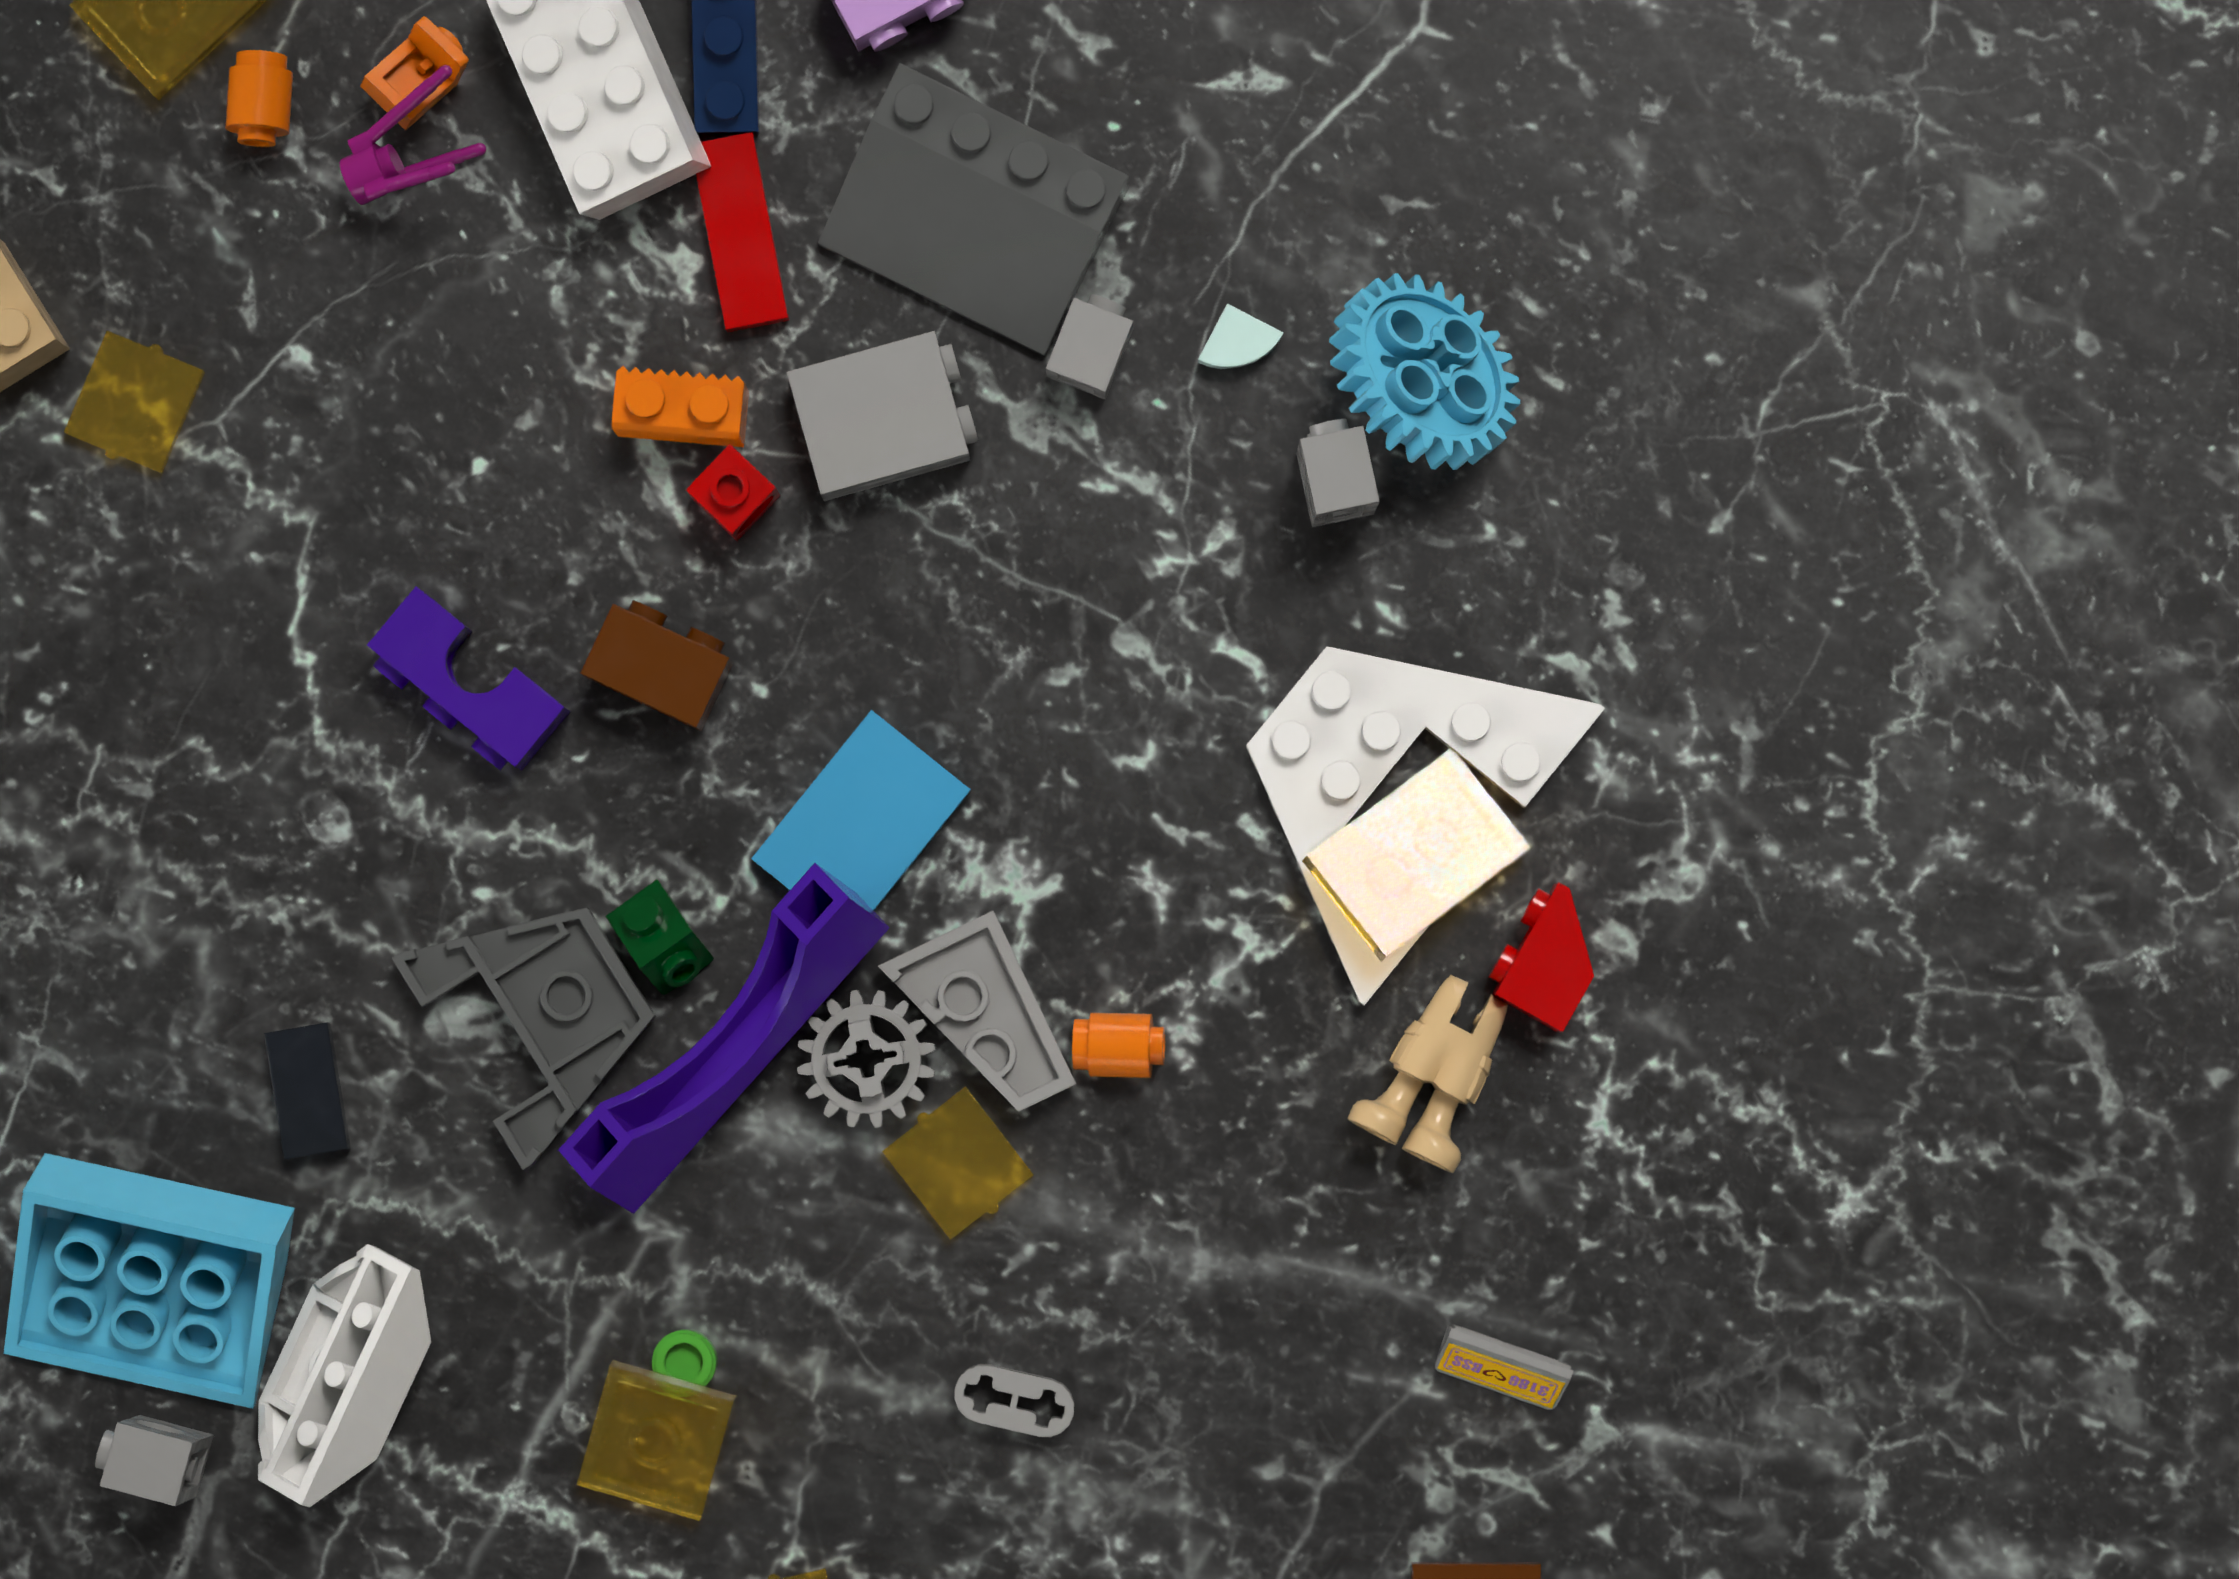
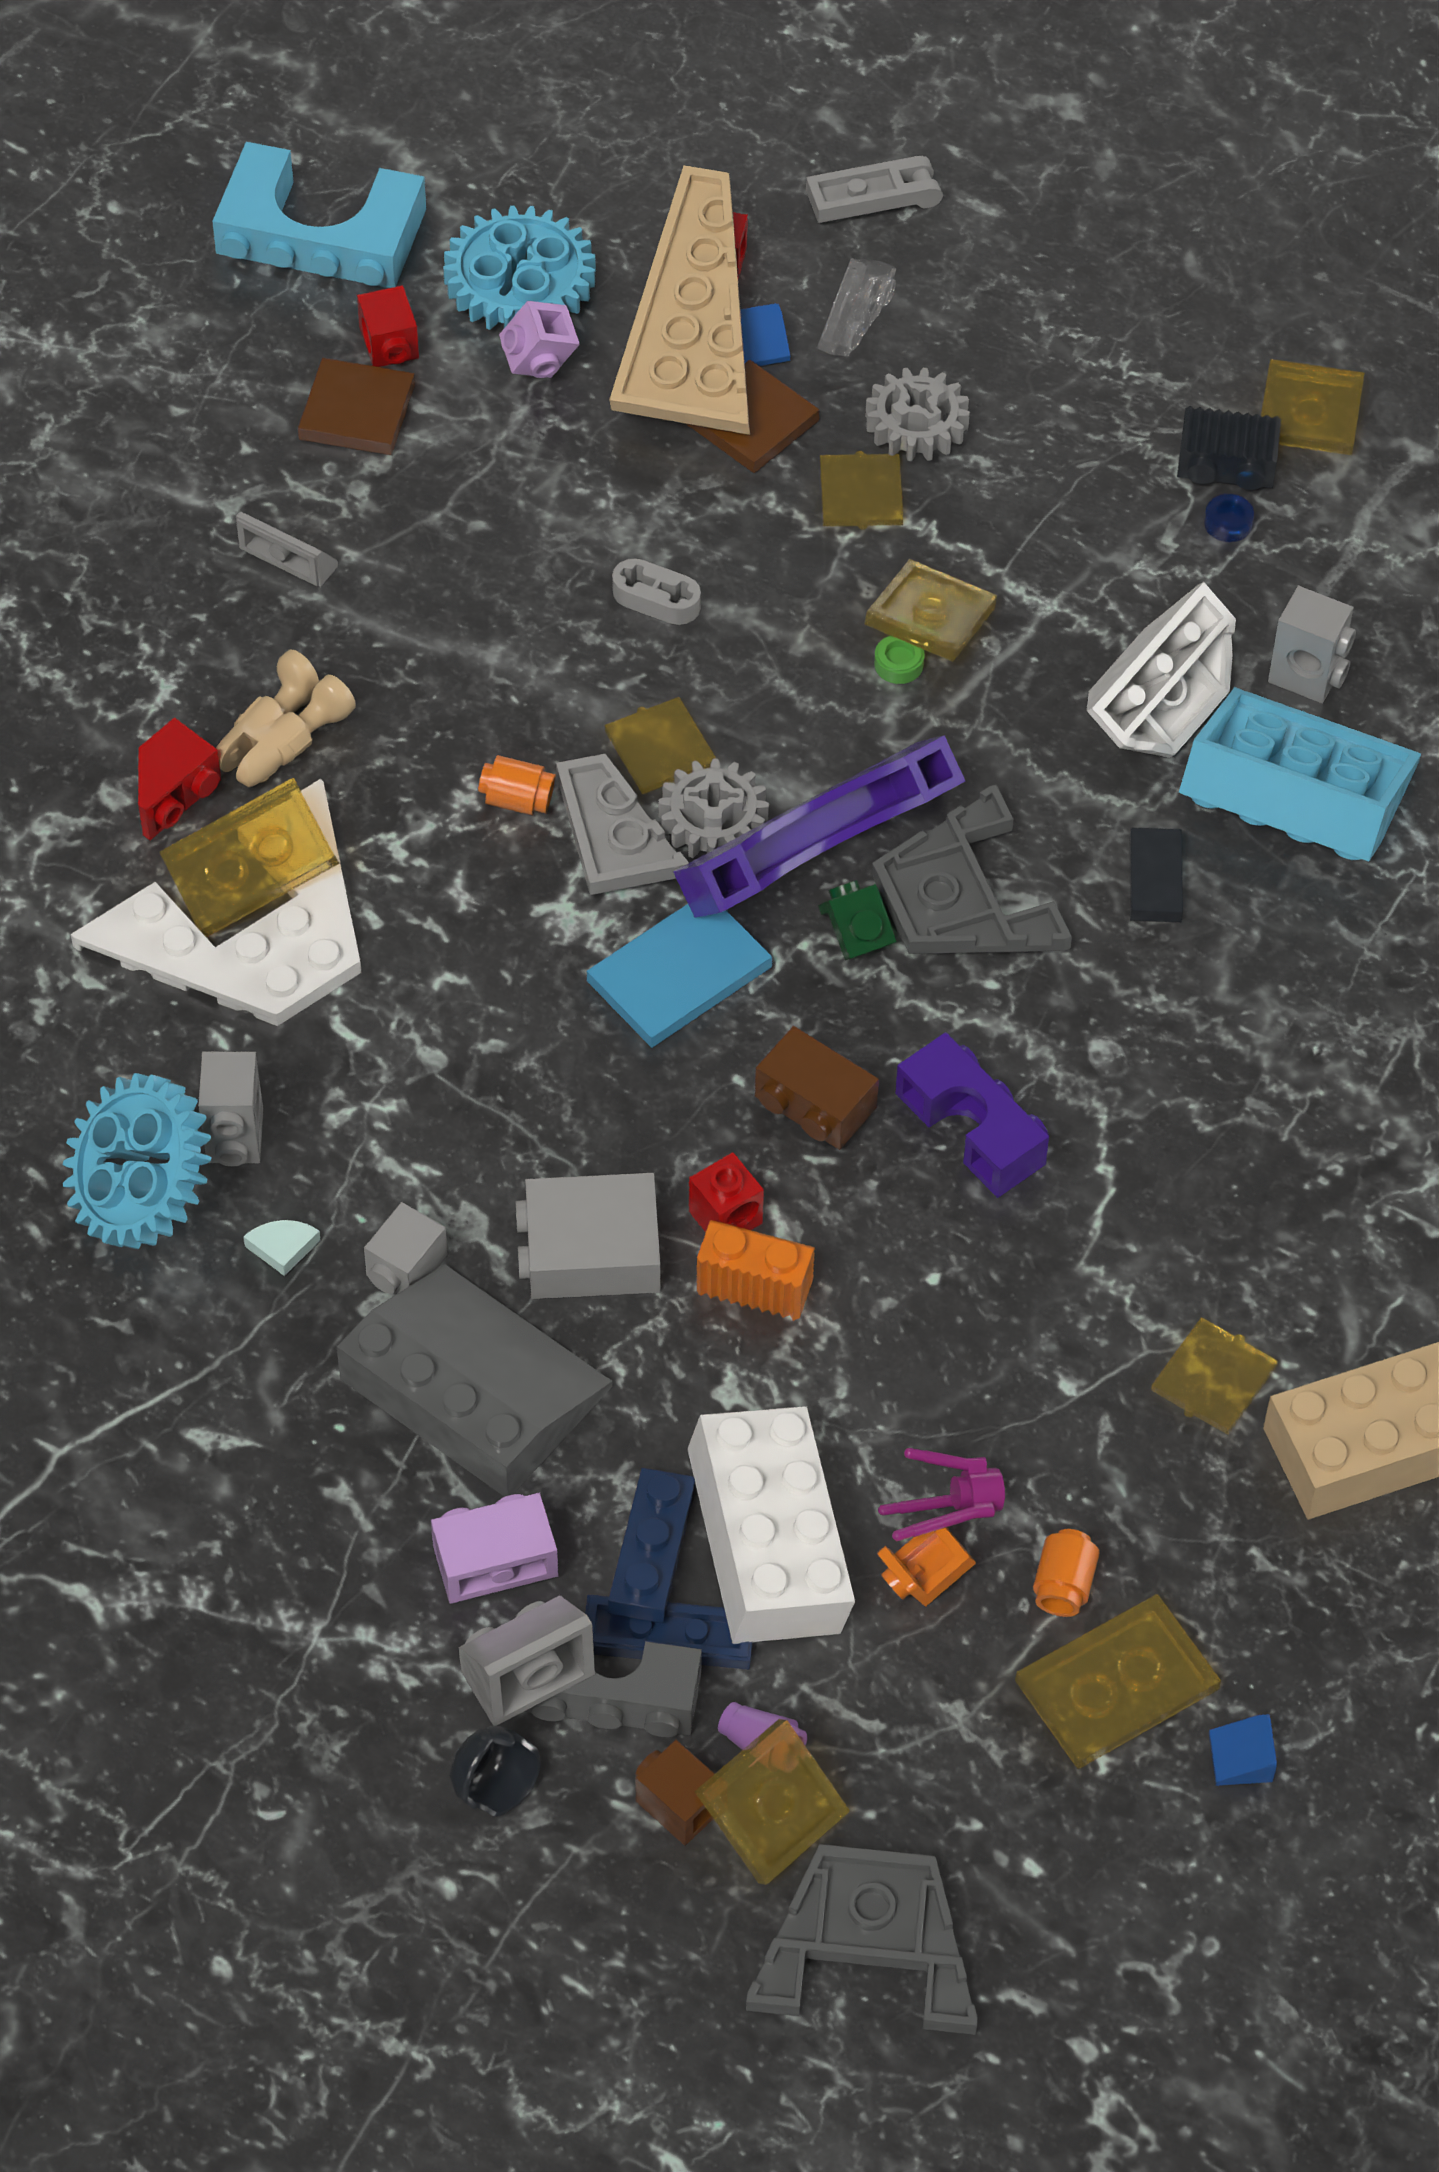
camera: 170 degrees left, 30 degrees down
(741, 234) = (674, 1395): red tile -> none

